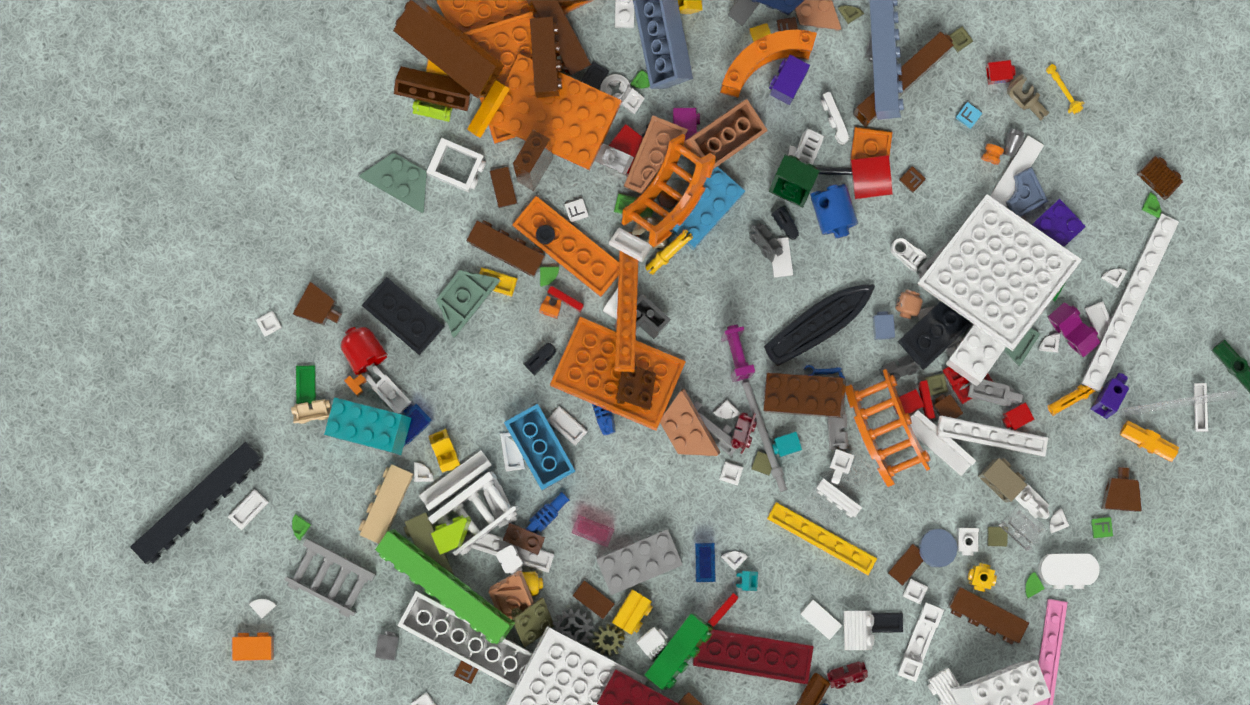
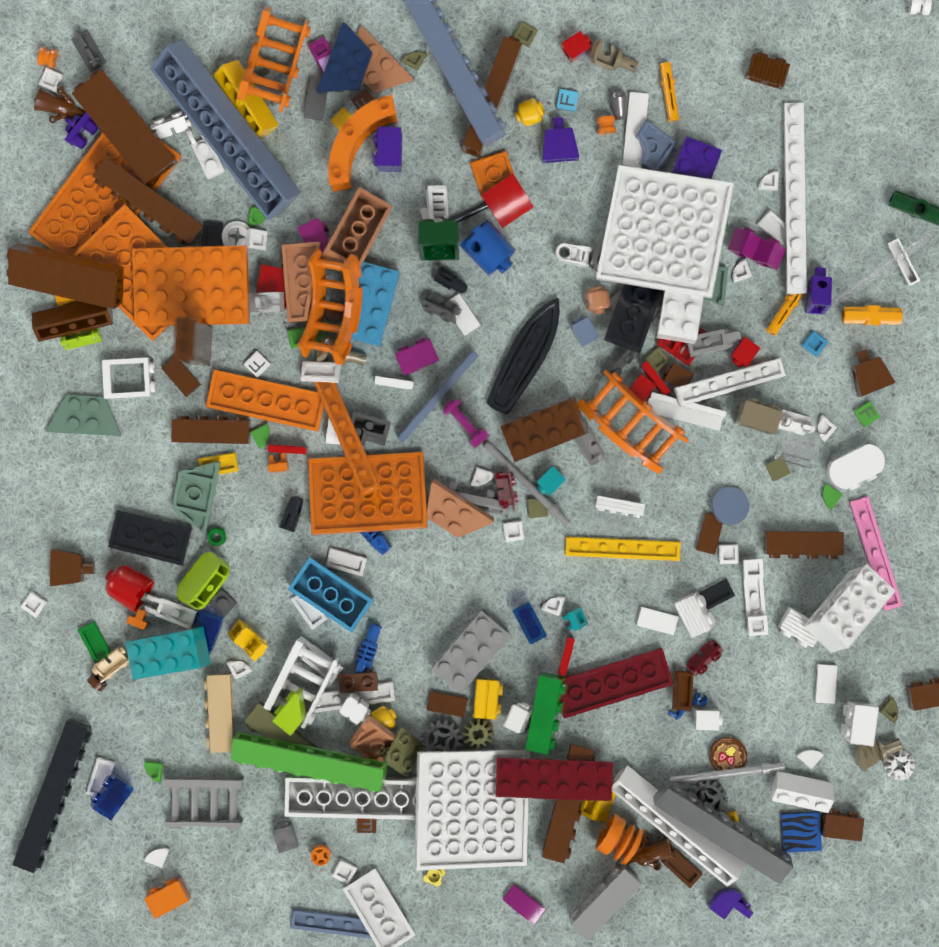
camera: 25 degrees left, 5 degrees up
(250, 529) = (111, 796): none -> clear blue brick
(288, 421) = (94, 681): none -> reddish brown tile
(410, 681) = (318, 858): none -> orange wheel
(431, 377) = (203, 580): none -> lime brick
(435, 399) = (222, 602): none -> dark grey slope
(455, 480) = (271, 660): white fence -> none
(458, 340) = (210, 536): none -> green plate
(488, 109) = (130, 313): light orange tile -> none
(545, 57) = (156, 240): reddish brown brick -> none
(545, 234) = (240, 401): black tile -> none
(593, 531) = (416, 644): clear pink brick -> none
(636, 388) = (390, 499): reddish brown hinge -> none
(662, 257) = (355, 369): yellow pin -> none
(690, 287) = (394, 383): none -> white tile
(722, 274) = (417, 356): none -> magenta brick
(723, 319) = (437, 397): none -> sand blue tile
(825, 371) = (552, 397): blue piece -> none
(835, 120) = (449, 165): white hinge -> none
(841, 464) = (607, 473): white plate -> none
(912, 179) = (545, 184): reddish brown tile -> none
(930, 109) = (530, 112): none -> yellow head
(943, 150) = (559, 143): none -> dark purple torso
(962, 535) = (746, 483): white brick -> none
(974, 577) = (775, 509): yellow brick -> none
(1063, 152) = (669, 91): none -> light orange pin
(1075, 106) = (659, 43): yellow piece -> none
(1085, 440) = (814, 343): none -> dark azure tile
(1152, 205) = (772, 100): bright green tile -> none

